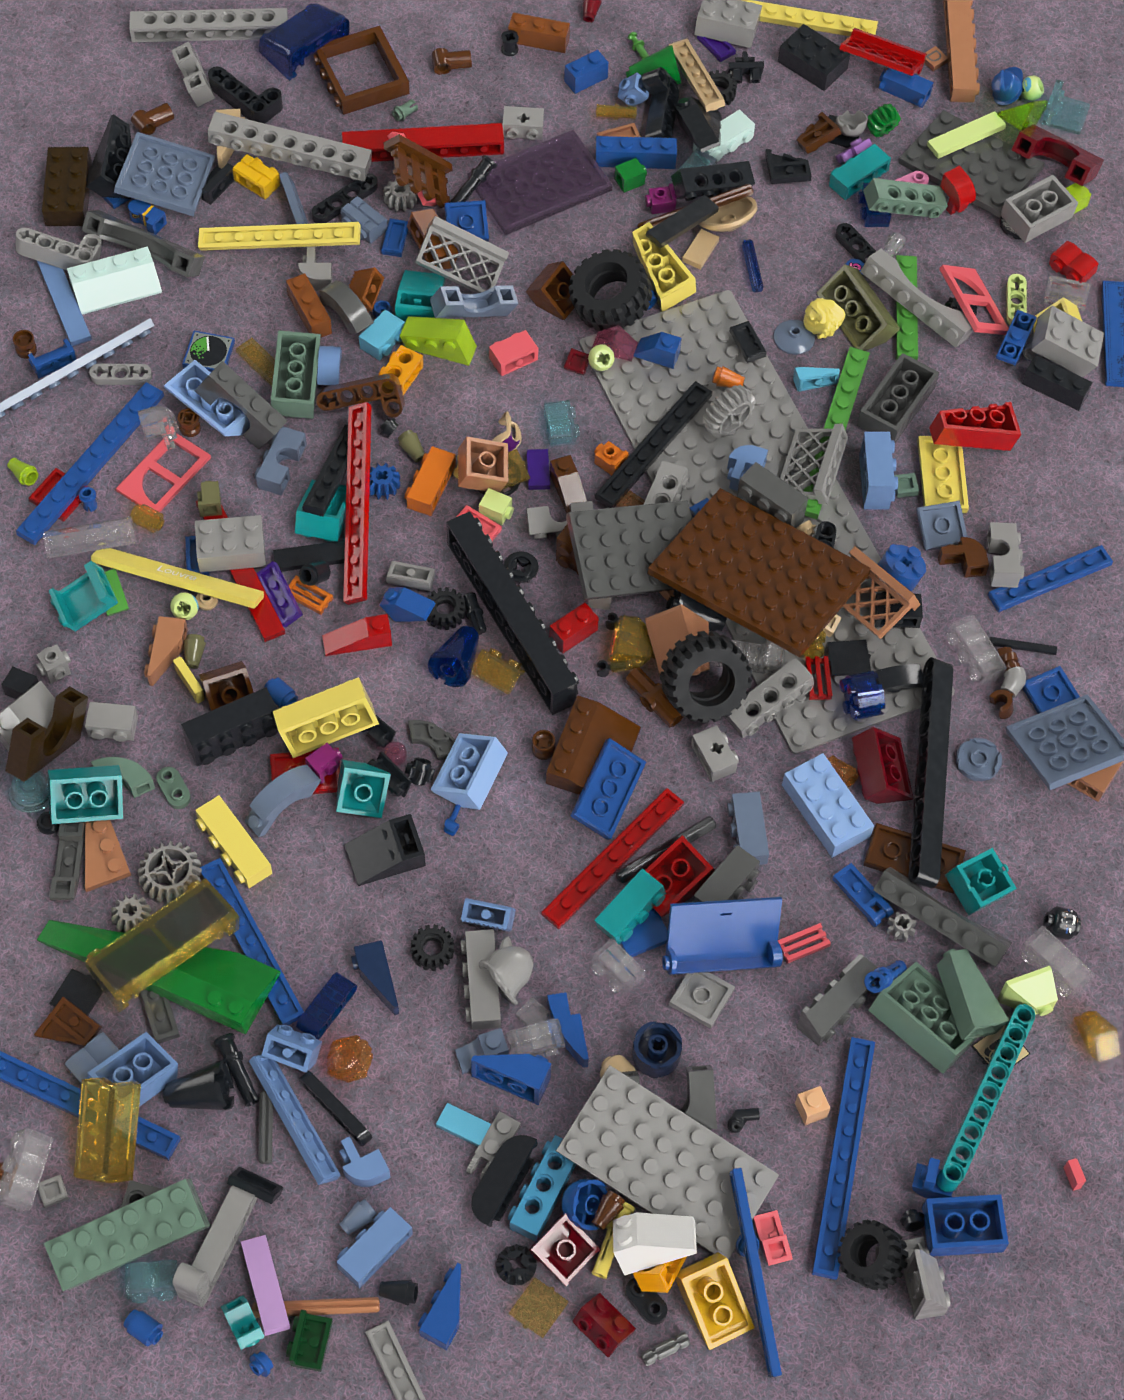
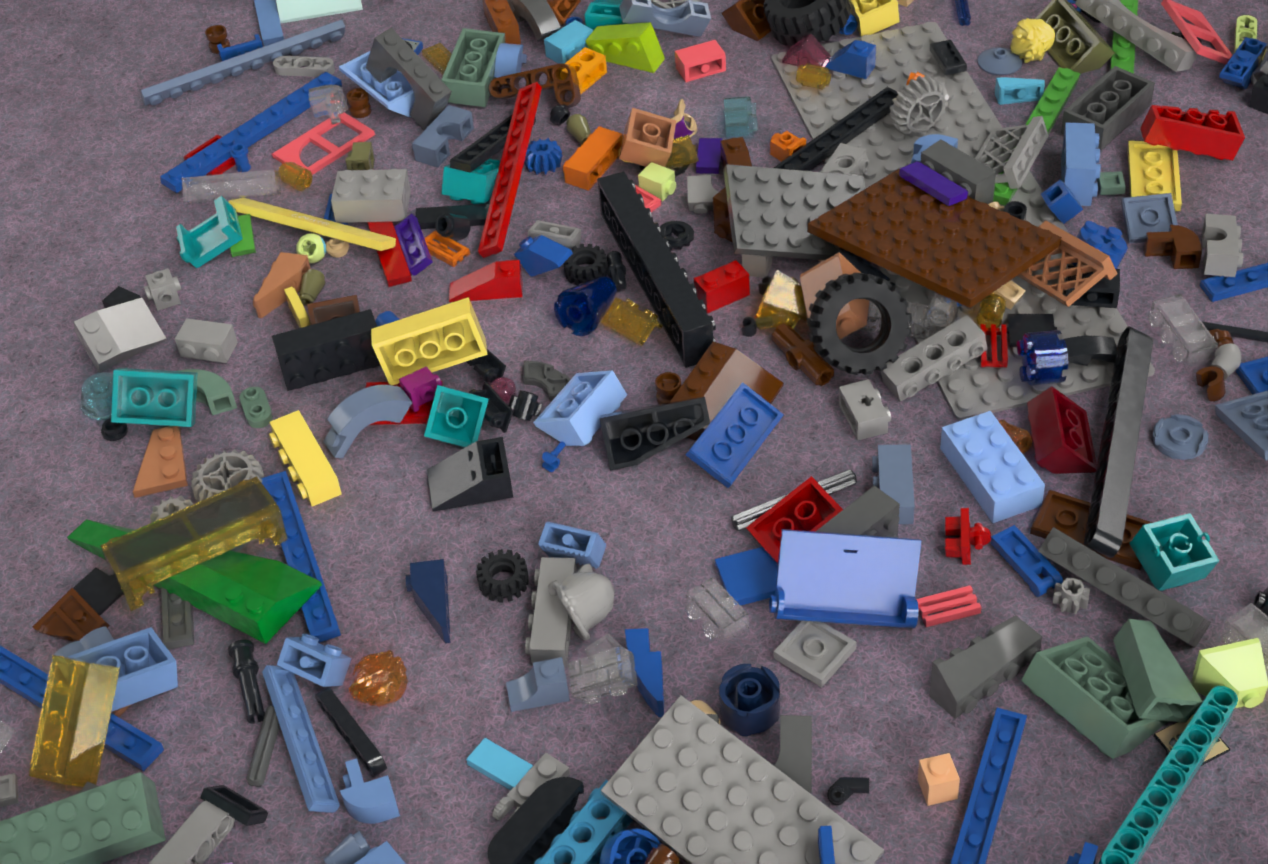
camera: 15 degrees right, 15 degrees down
(23, 472) = (185, 136): lime cone -> none
(36, 746) = (151, 346): dark brown arch -> none
(69, 861) = (126, 462): dark grey slope -> none
(202, 1089) = (201, 694): black cone -> none
(326, 1005) = (367, 623): clear blue beam -> none
(514, 1073) = (569, 708): blue slope -> none
(531, 792) = (644, 431): none -> black wedge
(577, 362) = (766, 71): dark red tile -> none
(601, 357) = (789, 62): yellowish green piece -> none
(612, 858) = (733, 501): red tile -> none
(625, 372) = (813, 76): none -> clear yellow brick
(631, 907) = (740, 546): teal brick -> none
(753, 512) = (933, 183): none -> dark purple tile
(807, 866) = (974, 536): none -> red hips
(865, 513) = (1061, 201): none -> blue brick
(886, 974) = (1040, 636): blue pin -> none

